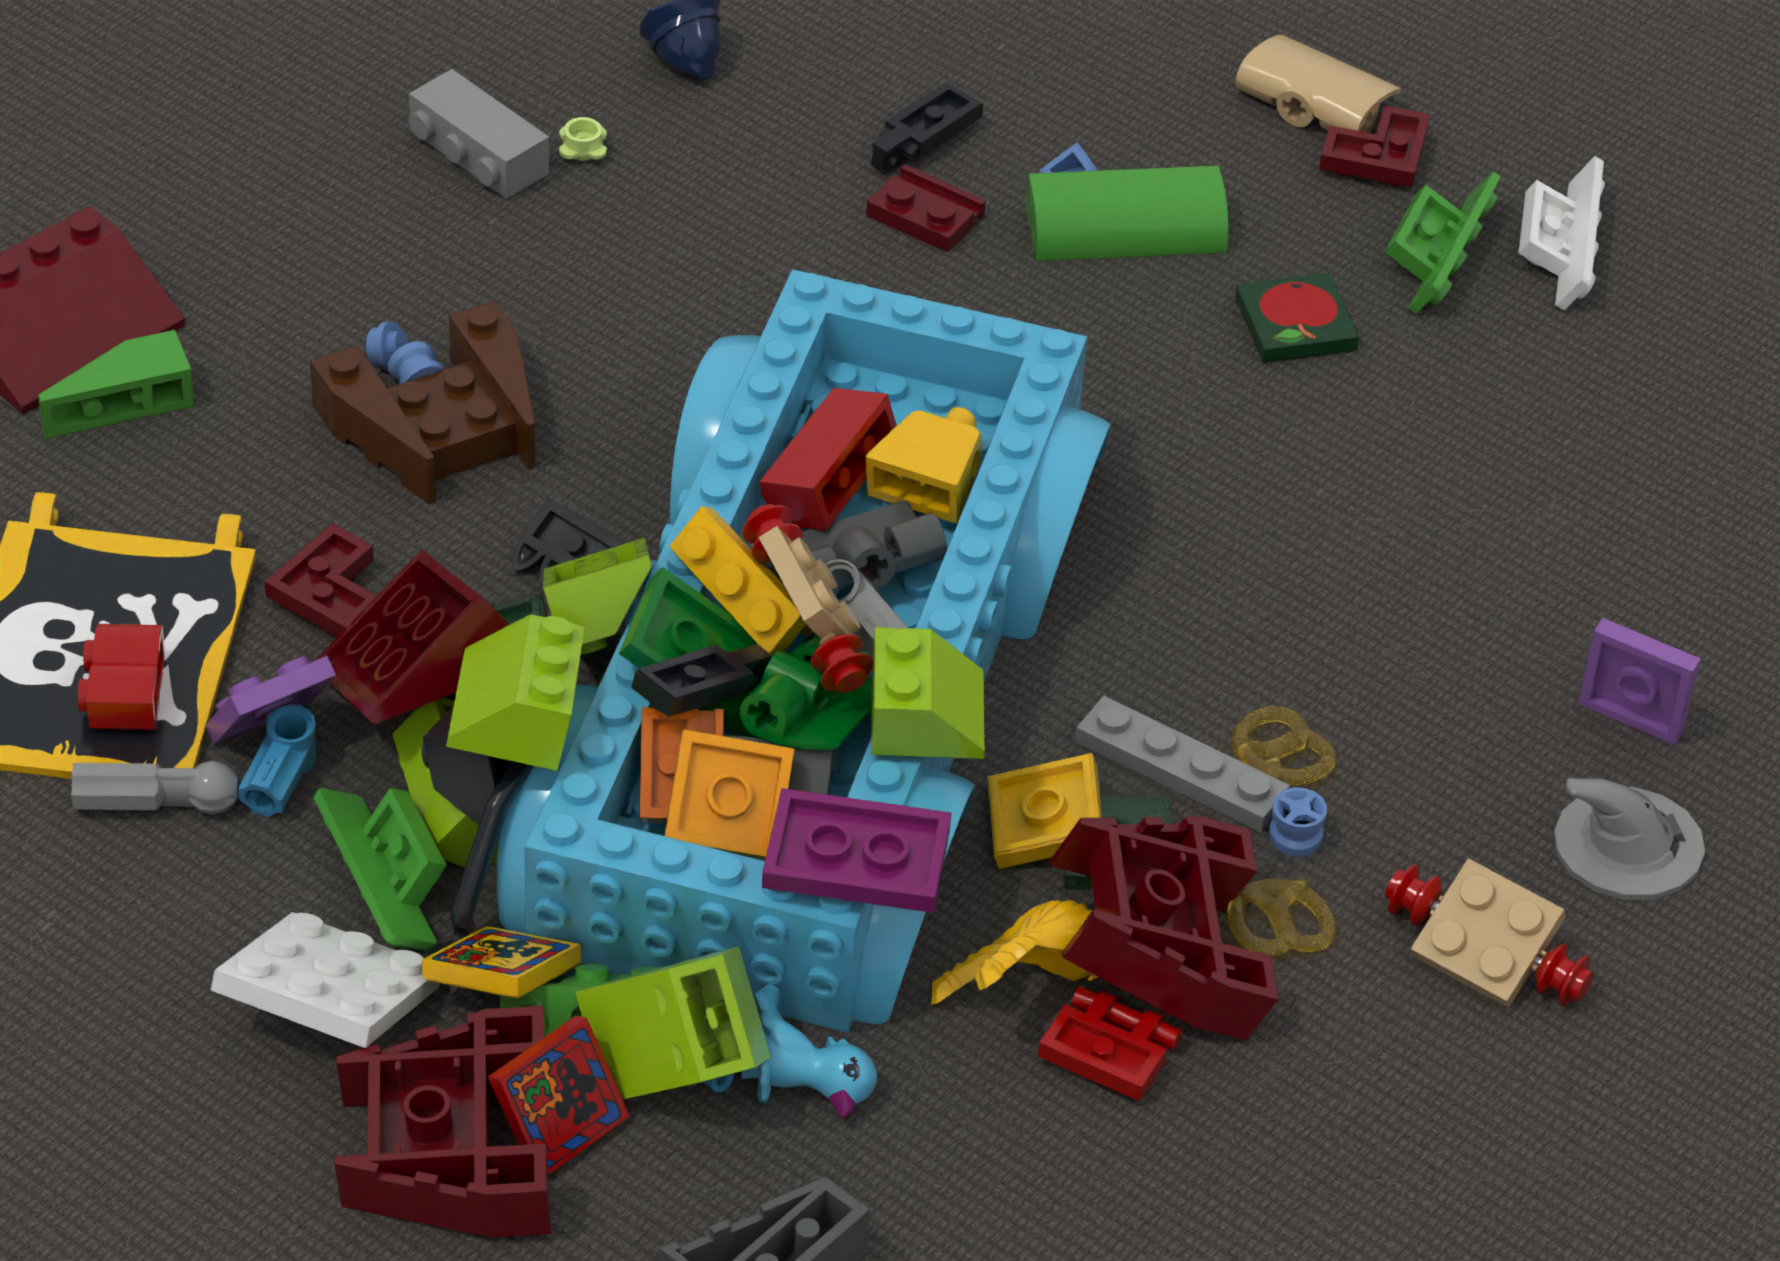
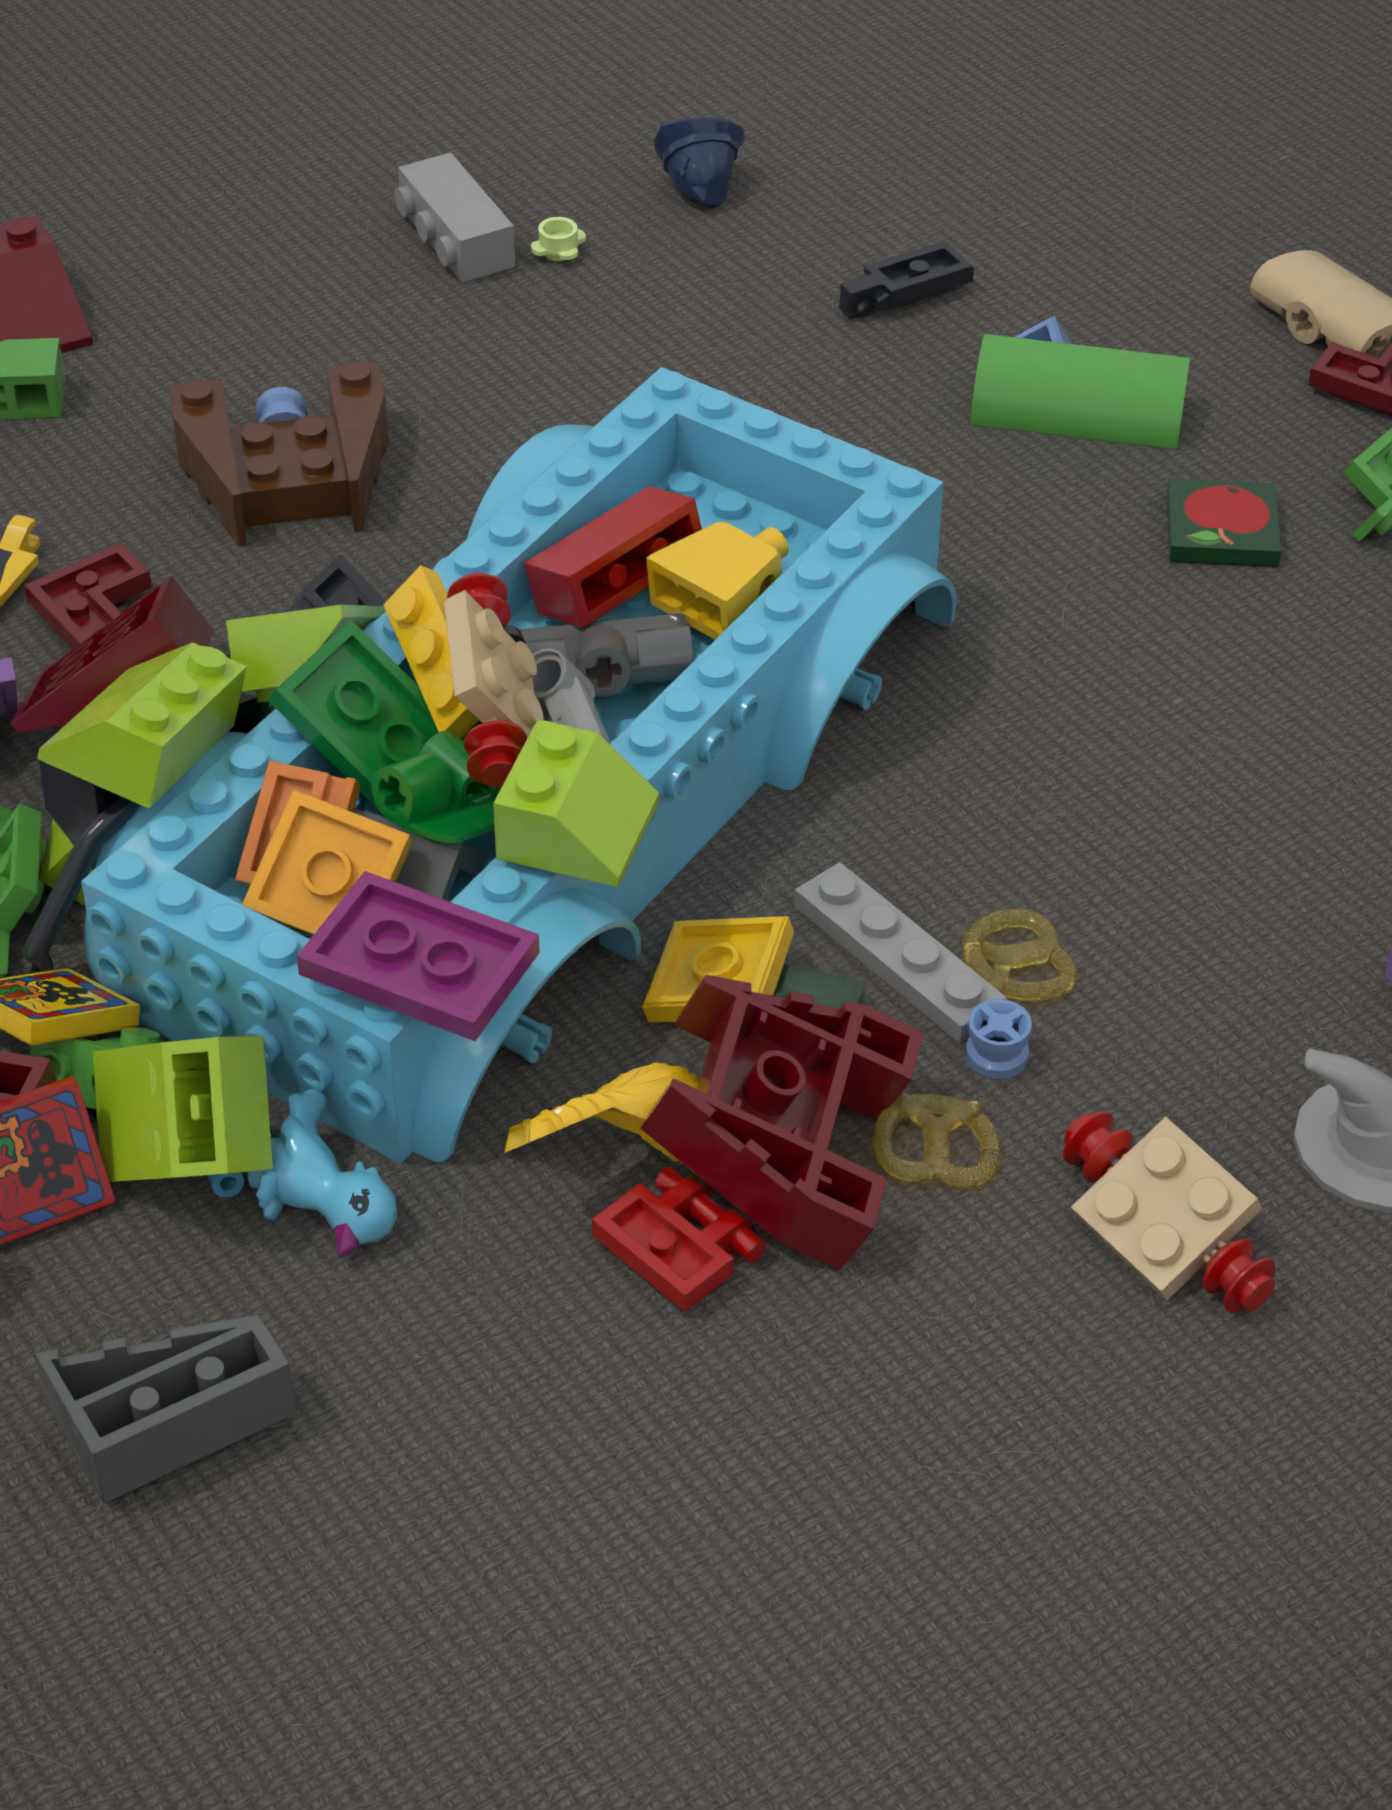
camera: 20 degrees right, 0 degrees up
(383, 342) = (261, 380): medium blue plate -> none
(700, 678) = (339, 740): black hinge -> none
(925, 208) = (875, 356): dark red plate -> none

